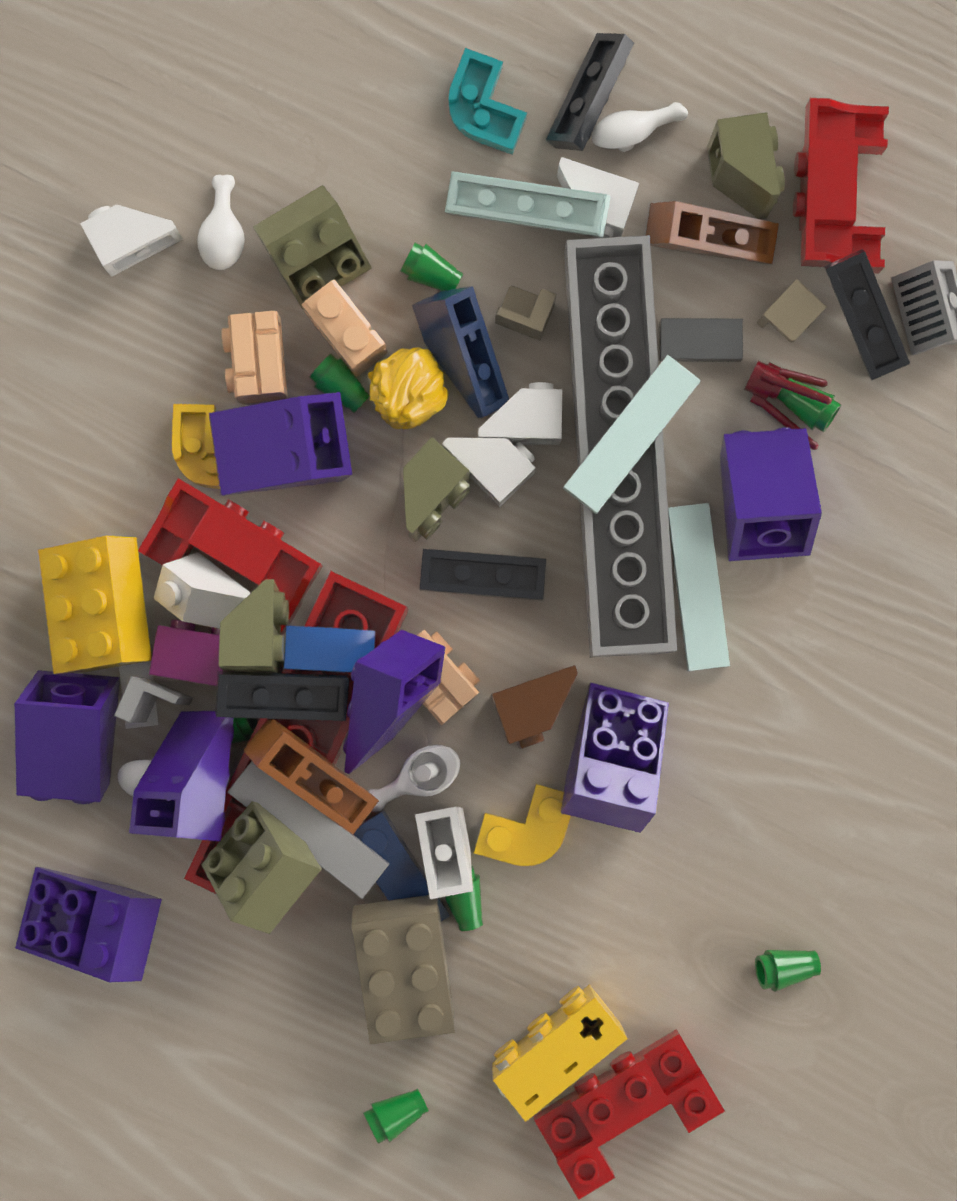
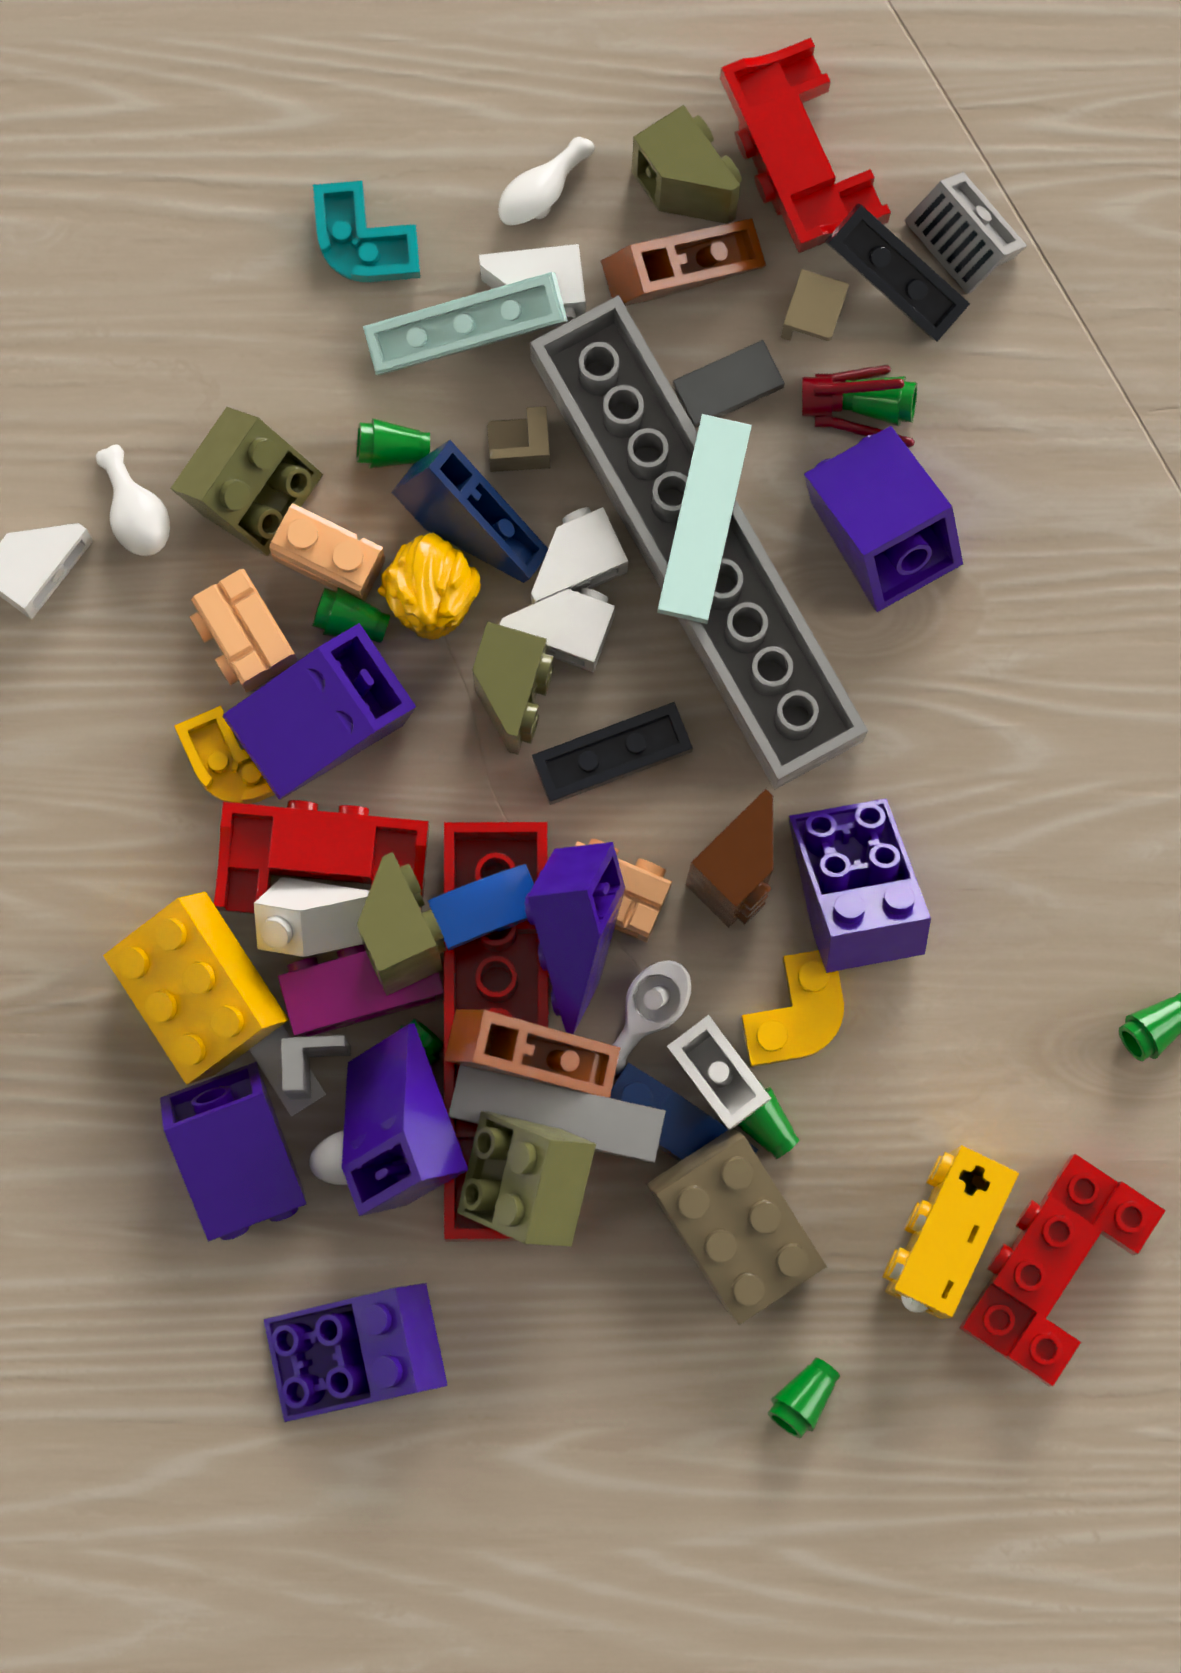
camera: 30 degrees left, 5 degrees down
(281, 696) = (459, 979): black plate -> none
(590, 91) = (474, 169): black plate -> none
(698, 587) = (858, 657): light aqua tile -> none

